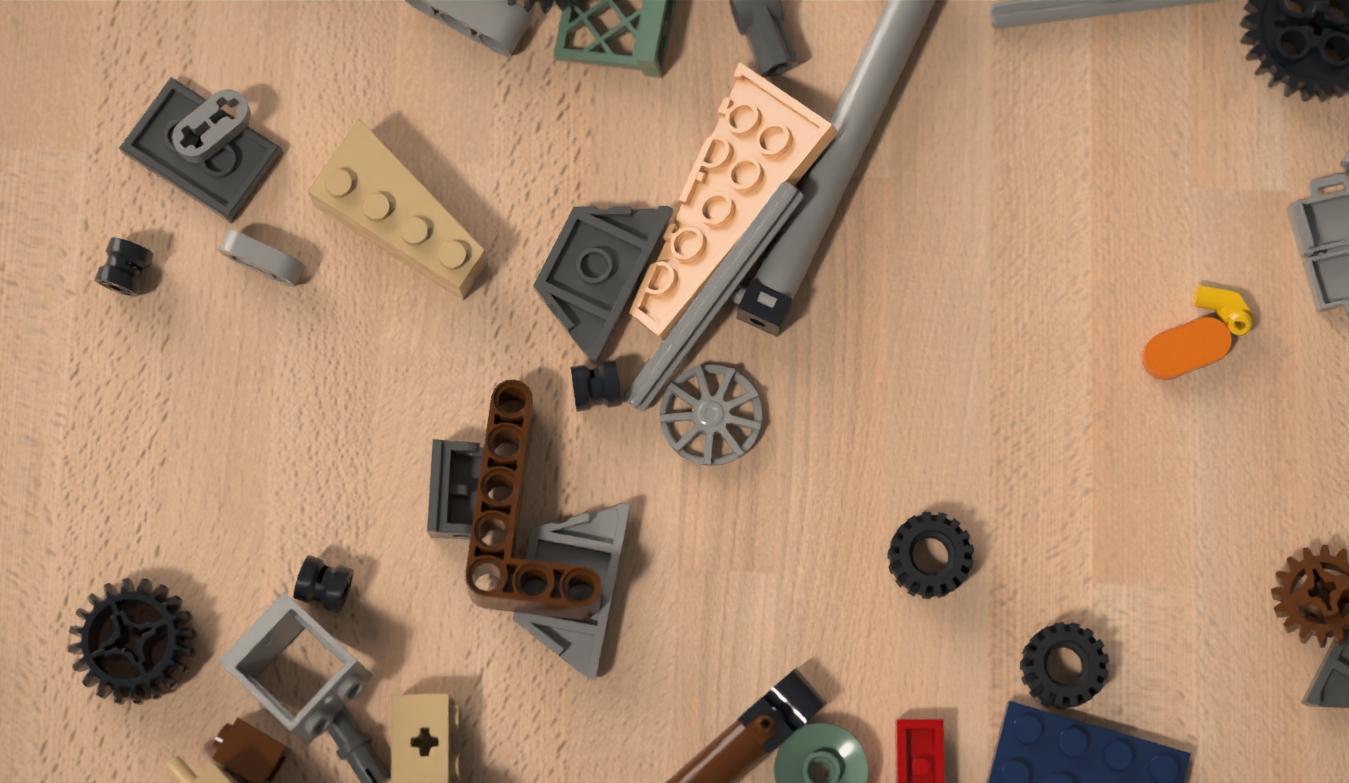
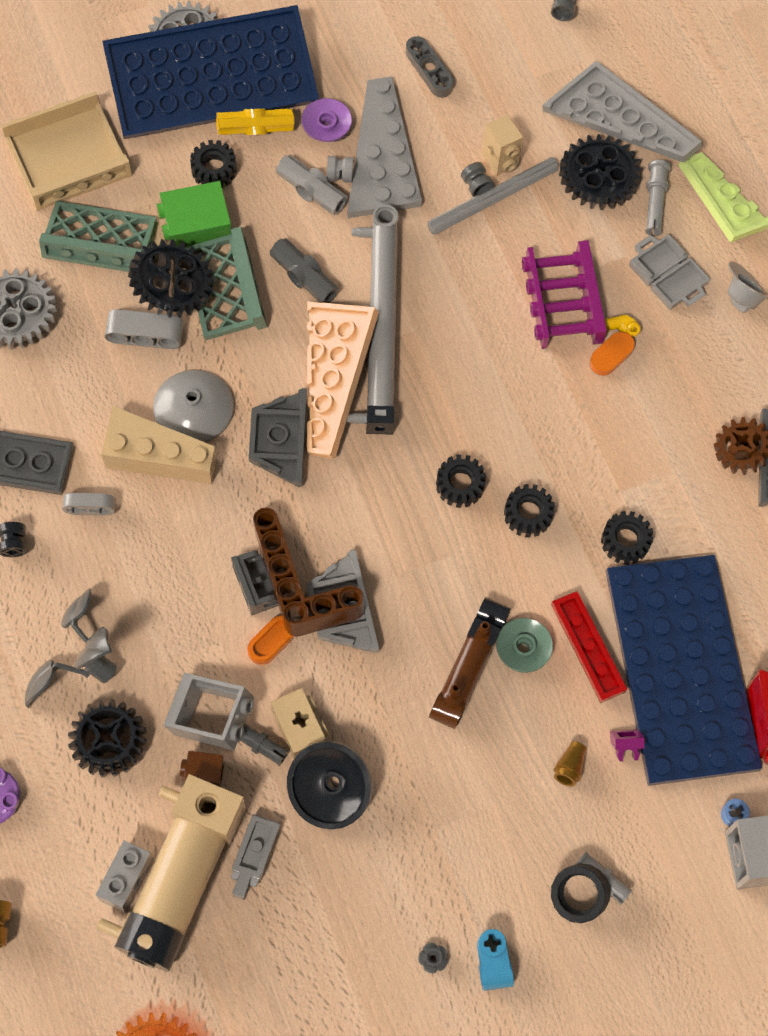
camera: 25 degrees left, 10 degrees down
(154, 513) = (90, 657): none -> dark grey plant
(204, 118) = (34, 448): light grey beam -> none
(323, 584) = (203, 661): black wheel -> none
(437, 593) = (269, 642): none -> orange tile
(497, 189) = (201, 418): none -> light grey dish
(596, 386) = (309, 495): black wheel -> none
(711, 414) = (376, 487): light grey wheel -> none
(713, 296) = (350, 423): light grey axle -> none
(851, 434) = (466, 467): none -> black tyre
(1187, 250) = (585, 280): none -> magenta fence

